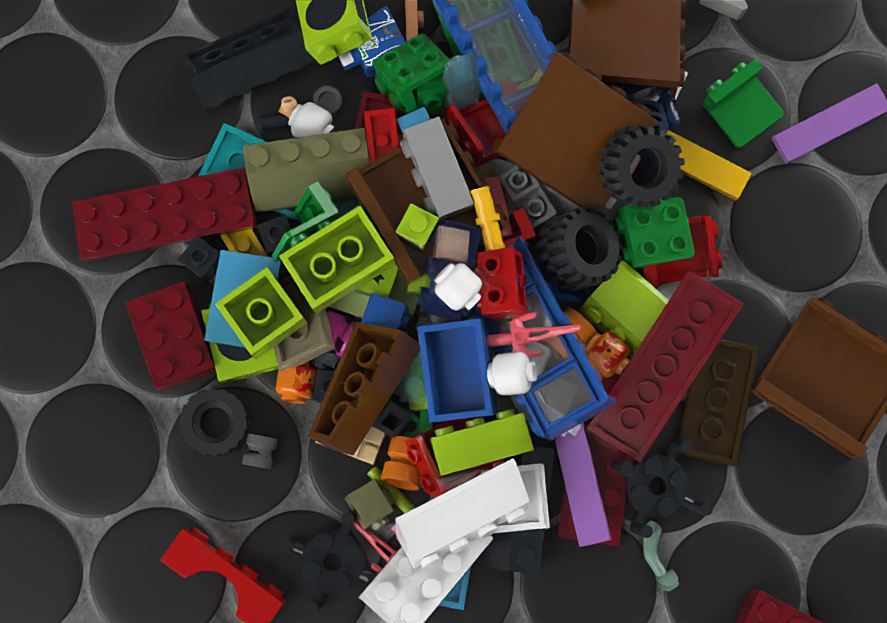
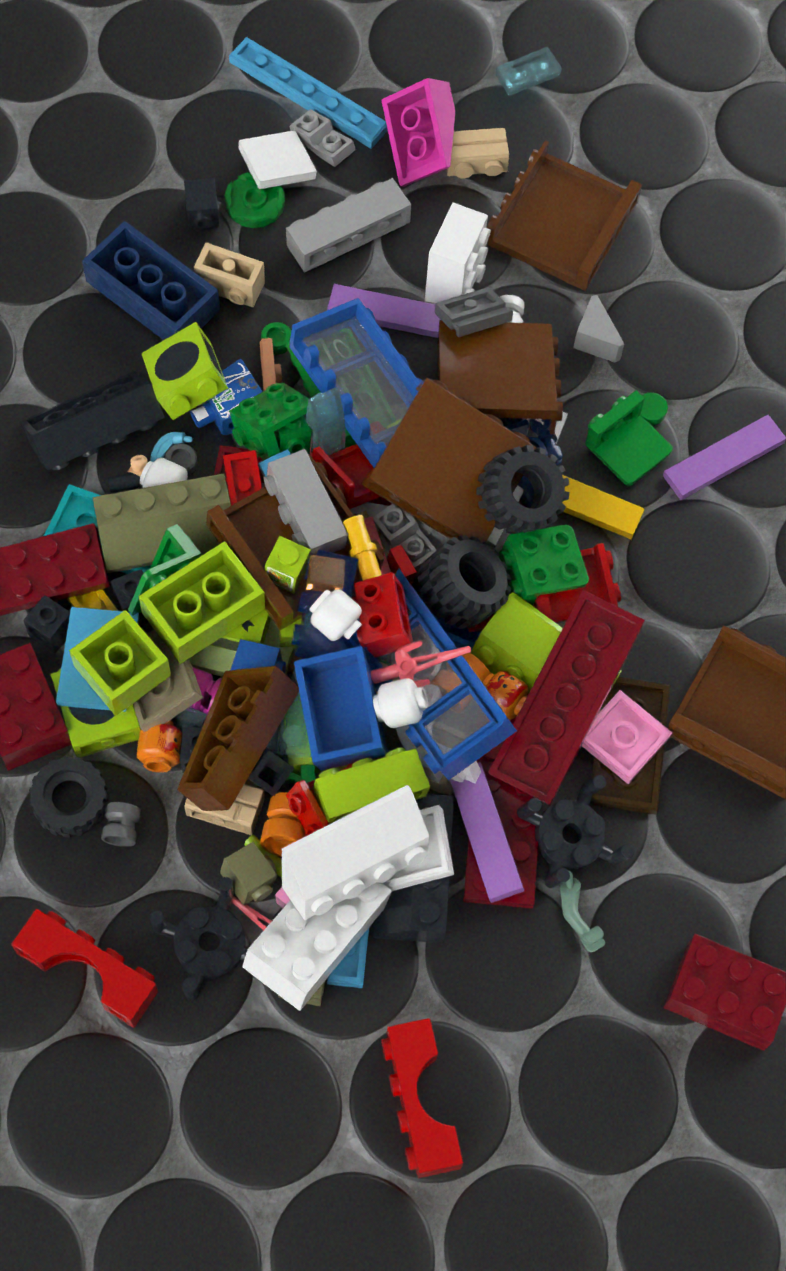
camera: 10 degrees left, 15 degrees down
(314, 83) = (167, 441): none -> medium azure piece
(715, 397) = (625, 737): none -> bright pink tile
(771, 70) = (654, 408): none -> green tile

